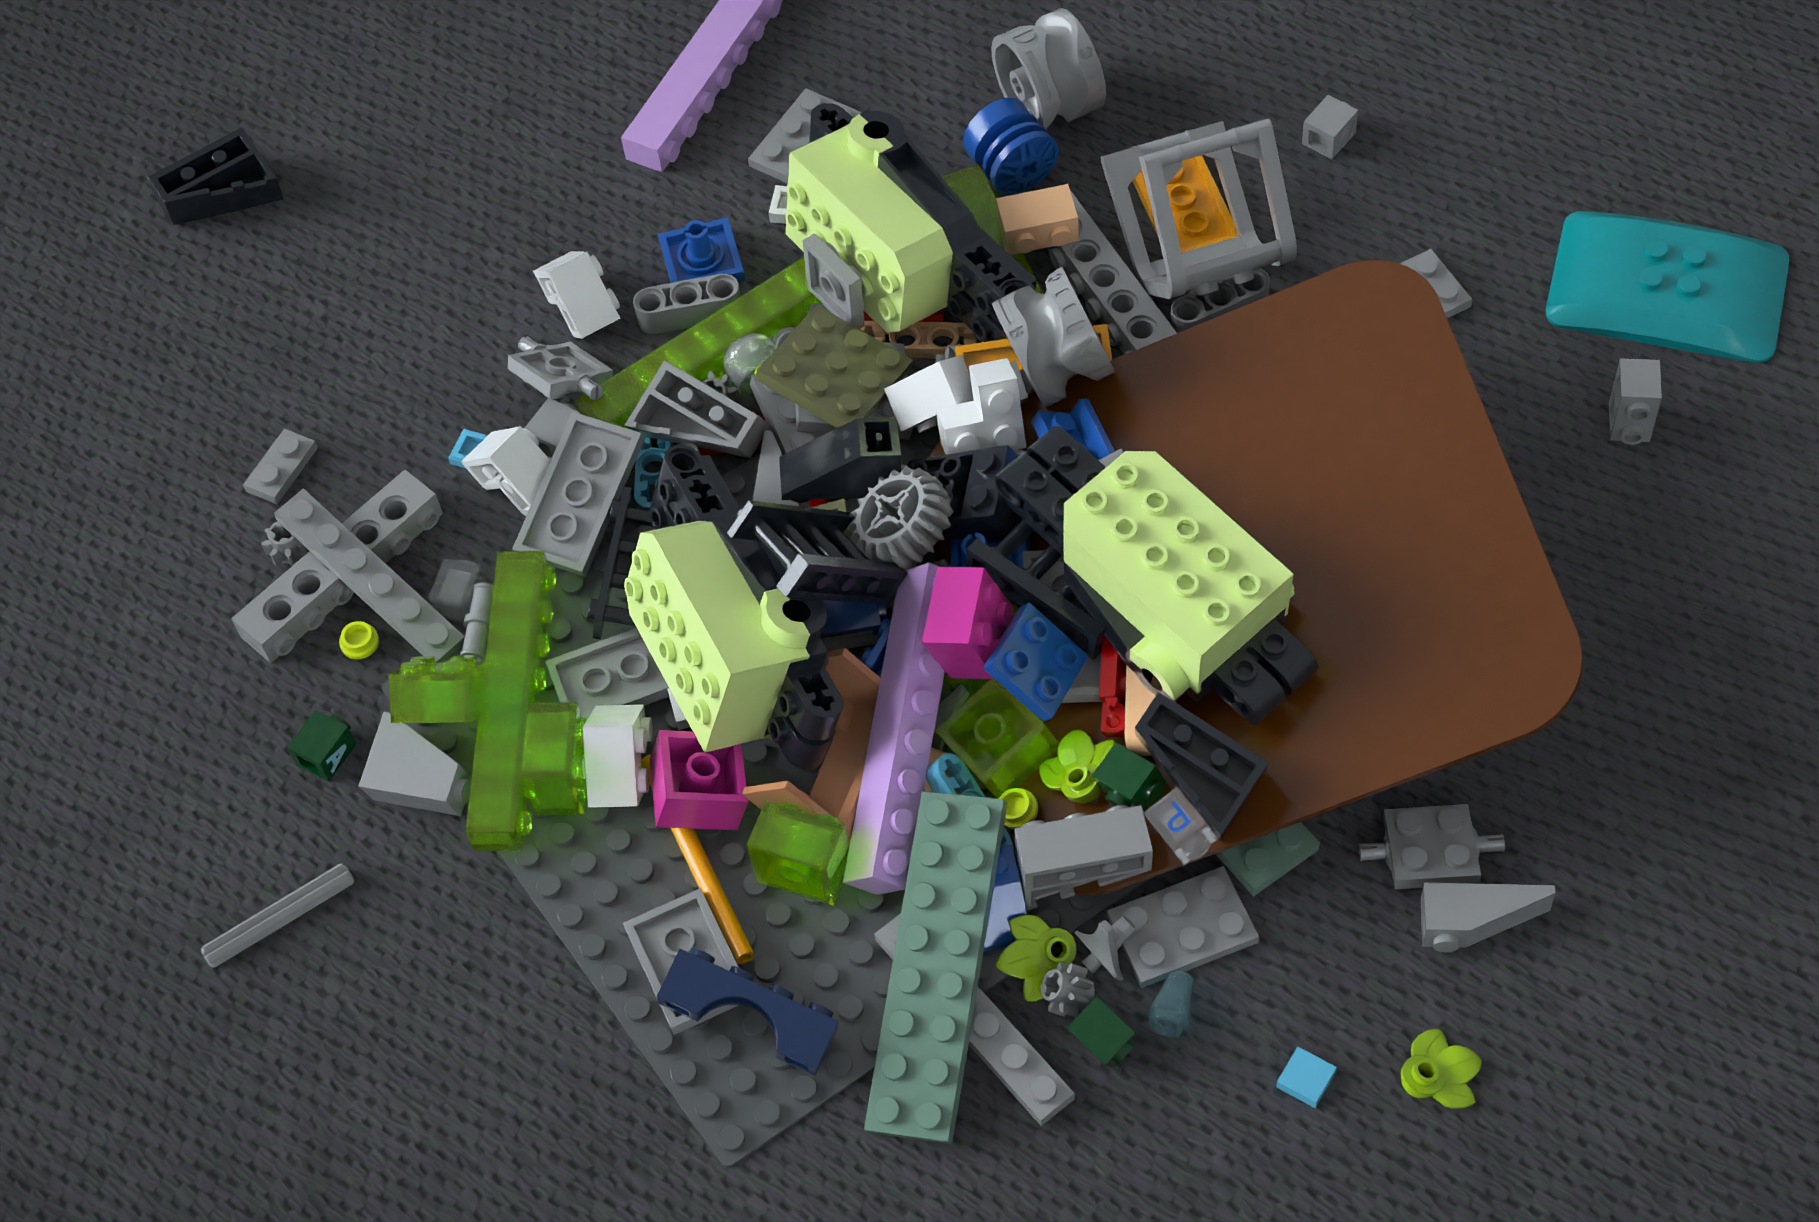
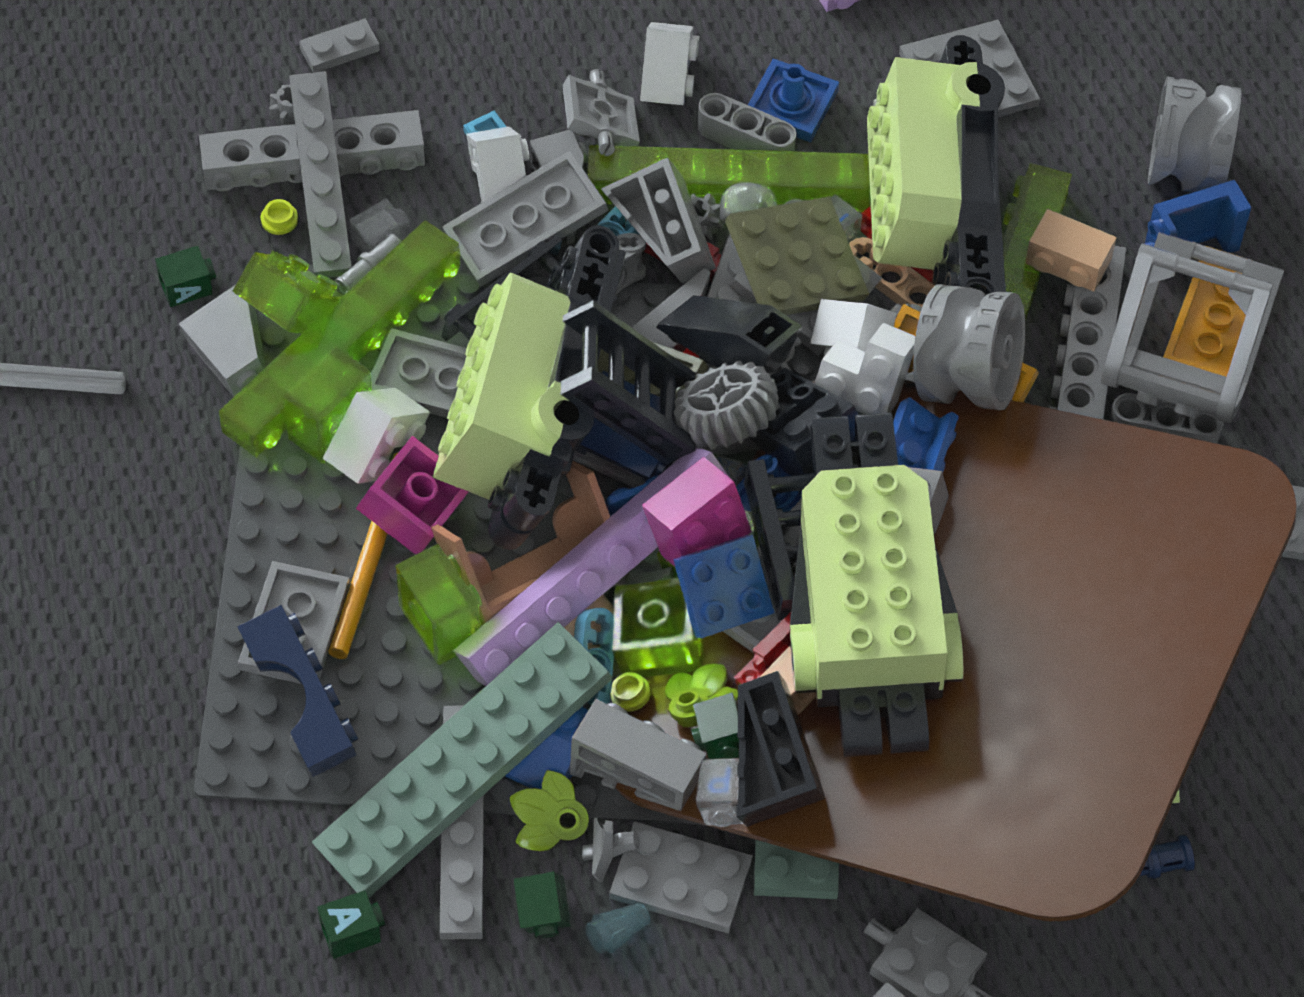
camera: 30 degrees right, 0 degrees up
(833, 281) = (858, 189): light grey plate -> none
(960, 1171) = (350, 923): none -> dark green brick
(1010, 146) = (1110, 177): blue wheel -> none
(1067, 989) = (547, 853): light grey gear -> none
(1116, 120) = (1203, 215): none -> blue panel

